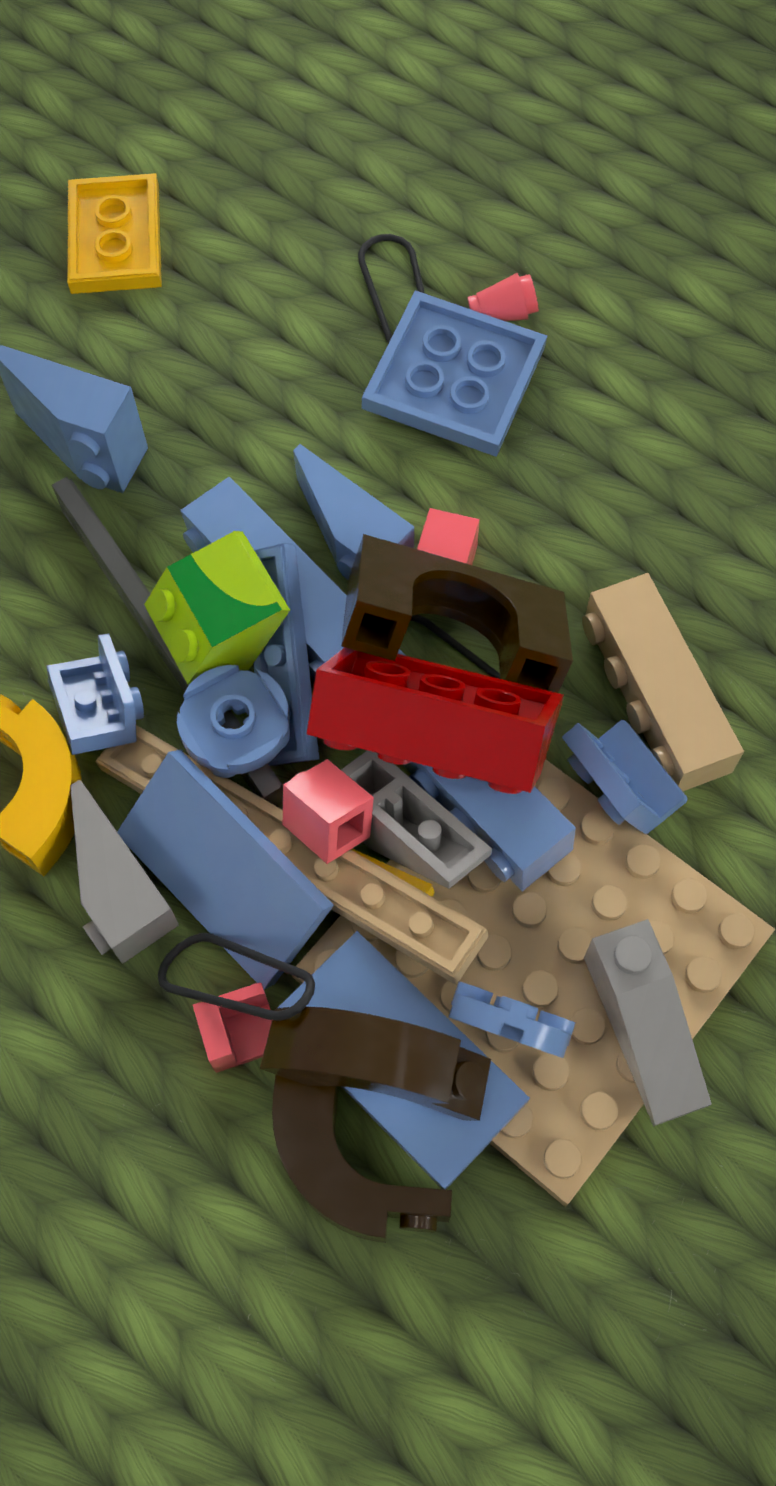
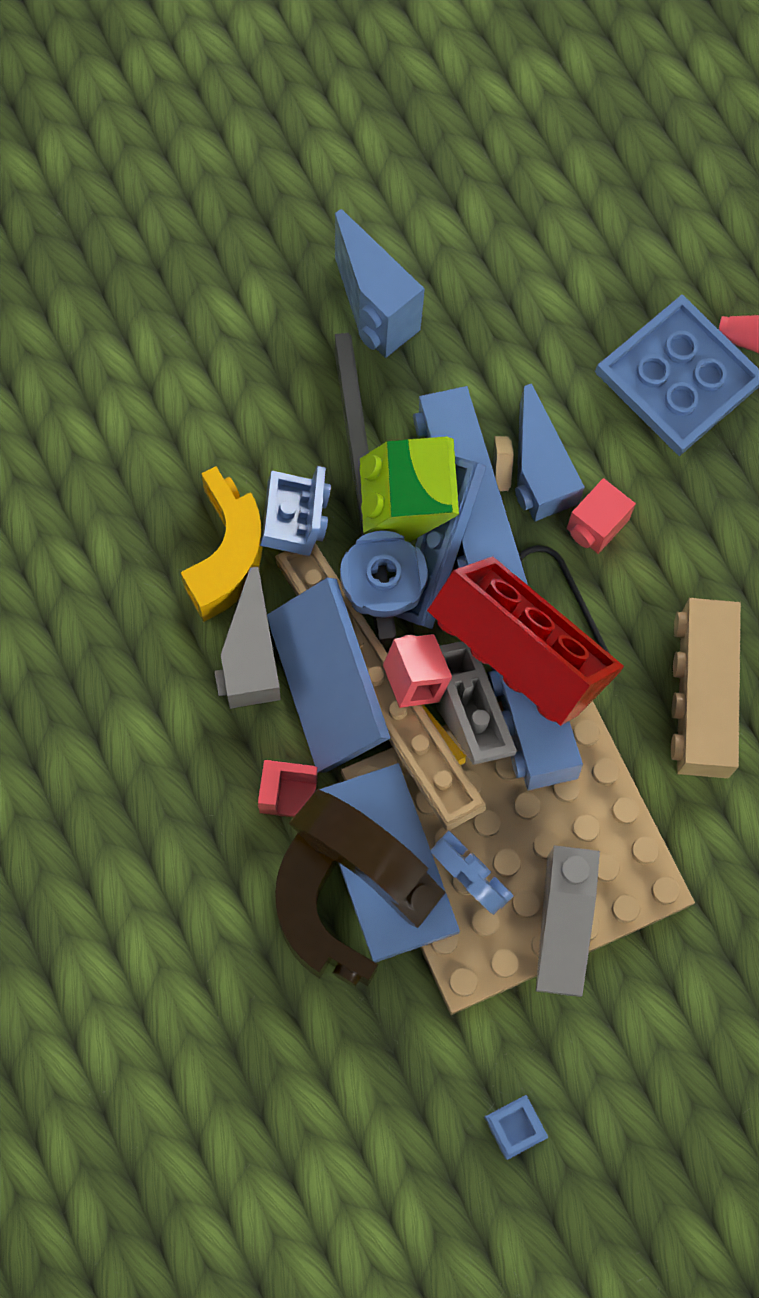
camera: 20 degrees right, 5 degrees up
(114, 233) = (474, 138): yellow tile -> none
(231, 1004) = (322, 796): black piece -> none
(308, 539) = (503, 462): none -> tan tile
(361, 259) = (690, 236): black piece -> none
(517, 616) = (625, 588): dark brown arch -> none
(627, 773) = (644, 743): medium blue bracket -> none
(714, 1308) = (516, 1127): none -> medium blue tile

